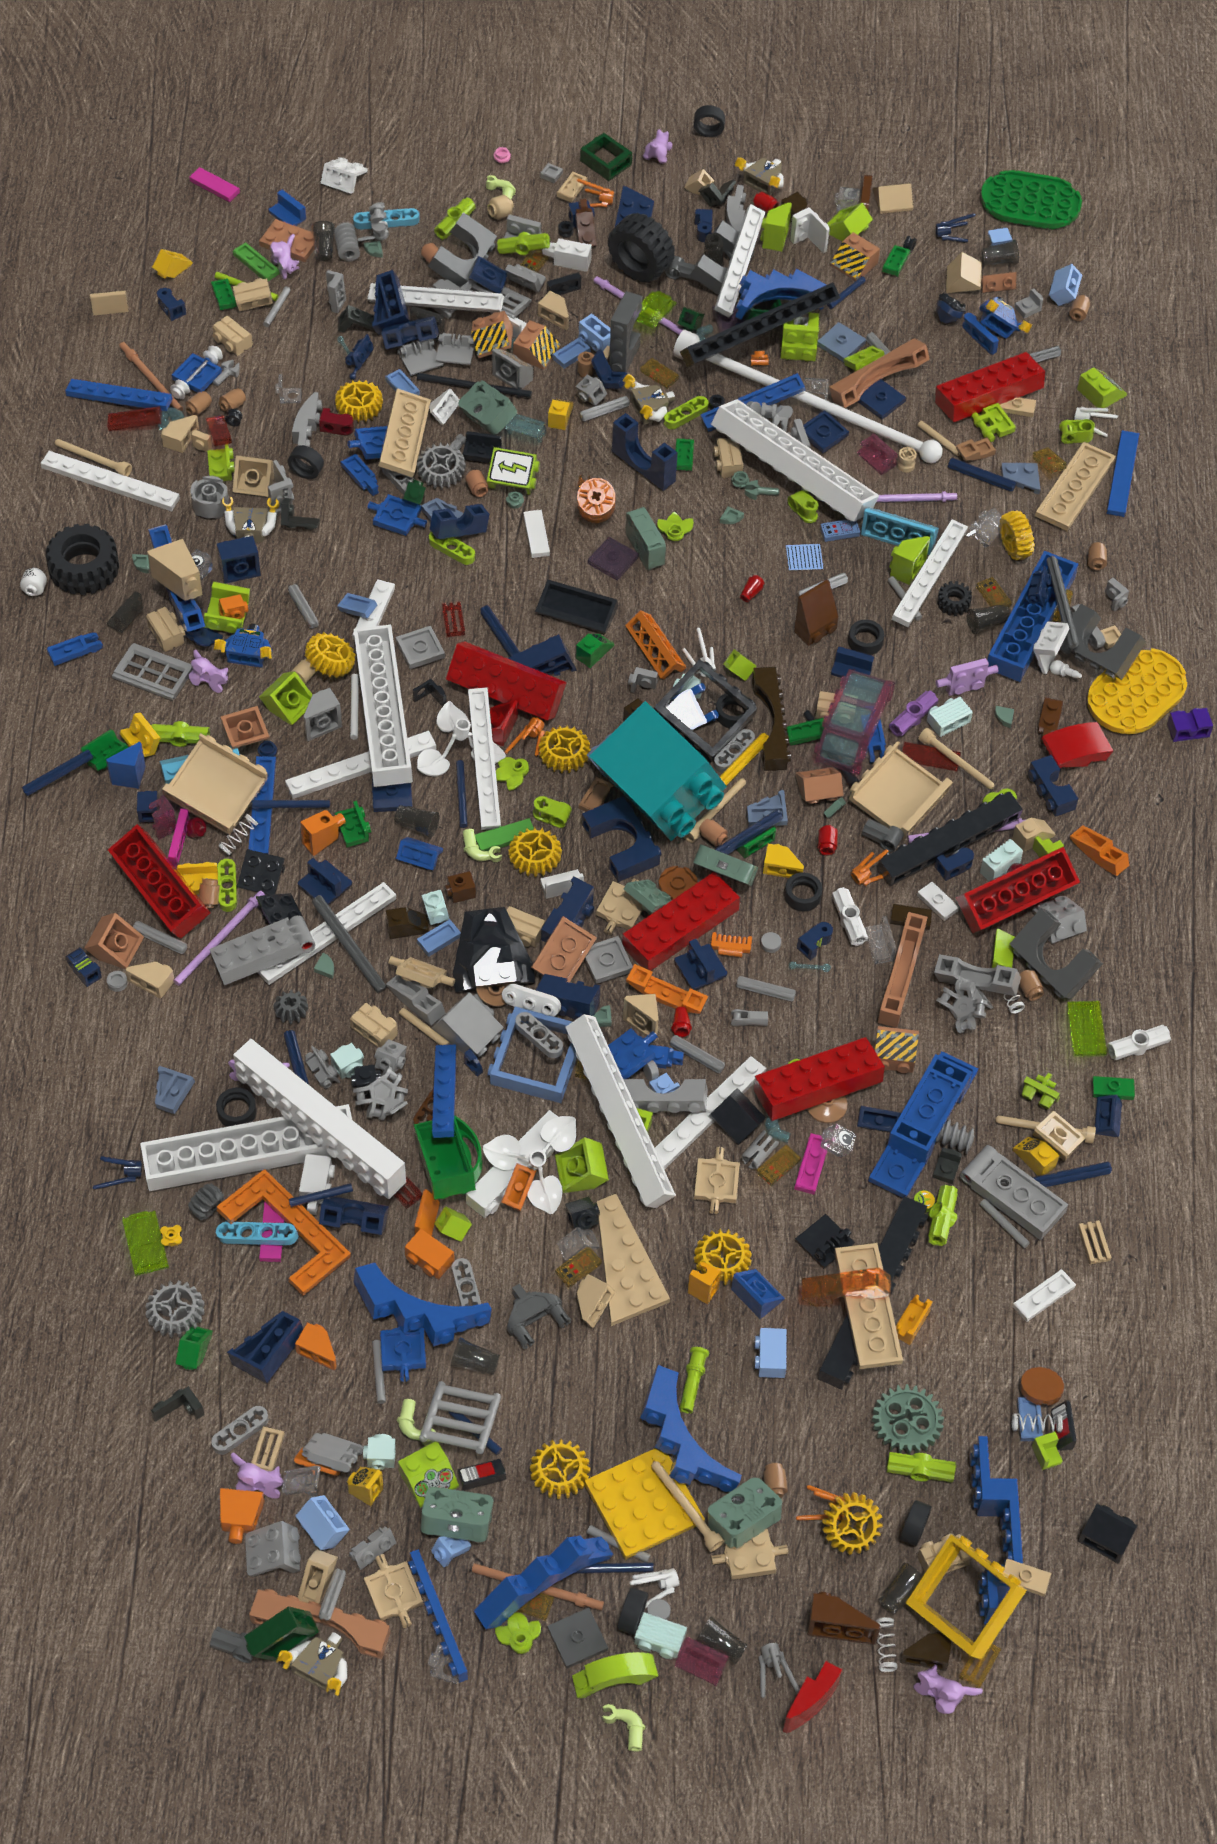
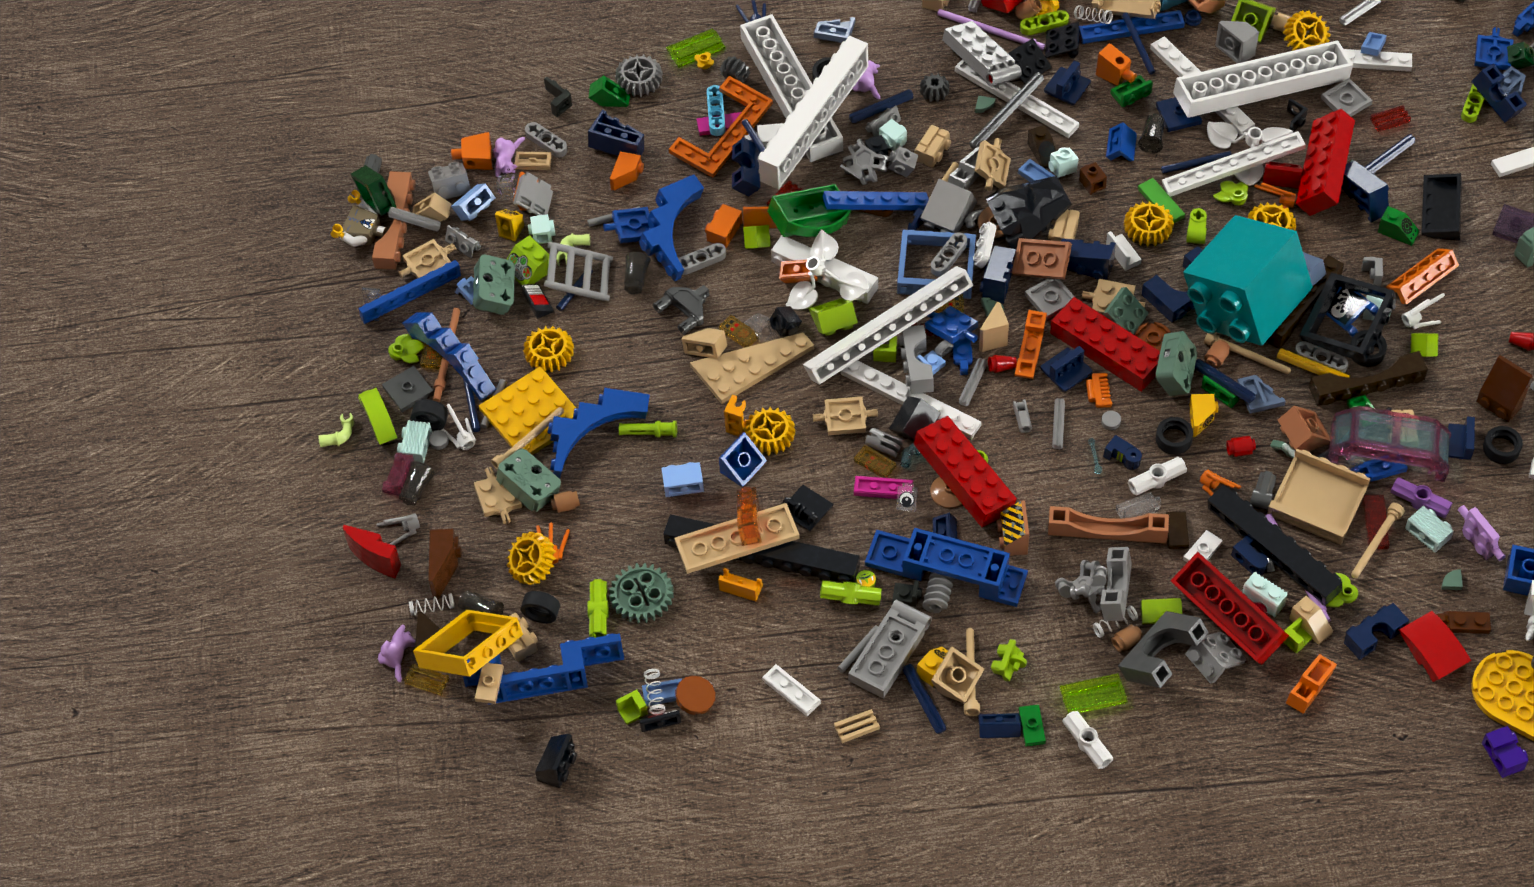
camera: 85 degrees right, 0 degrees up
(473, 851) = (1137, 179): yellowish green piece -> none

